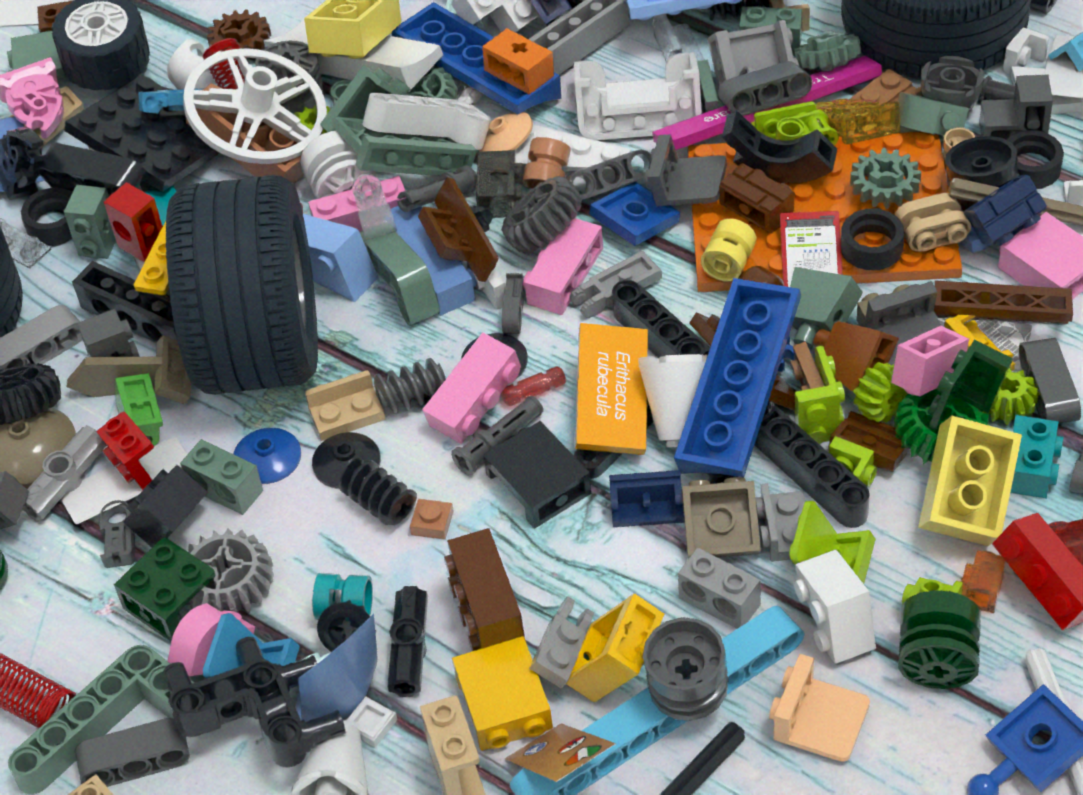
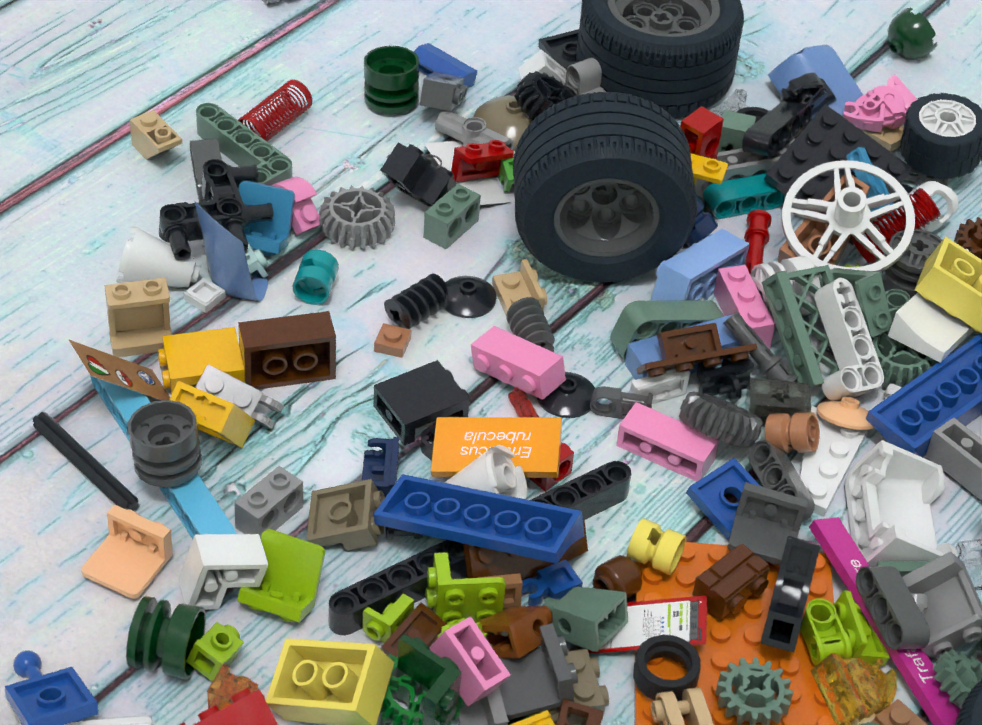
camera: 85 degrees right, 5 degrees down
(162, 586) = (344, 177): dark green bracket -> none
(272, 451) = (480, 251): blue dish -> none
(334, 616) = (283, 275): black gear -> none
(373, 210) = (720, 297): clear piece -> none
(407, 657) = (264, 307): black piece -> none
(483, 440) = (464, 376): dark grey pin -> none
(518, 61) = (922, 408): orange brick -> none
(635, 268) = (646, 481): light grey hinge -> none
(780, 520) = (344, 561): light grey bracket -> none

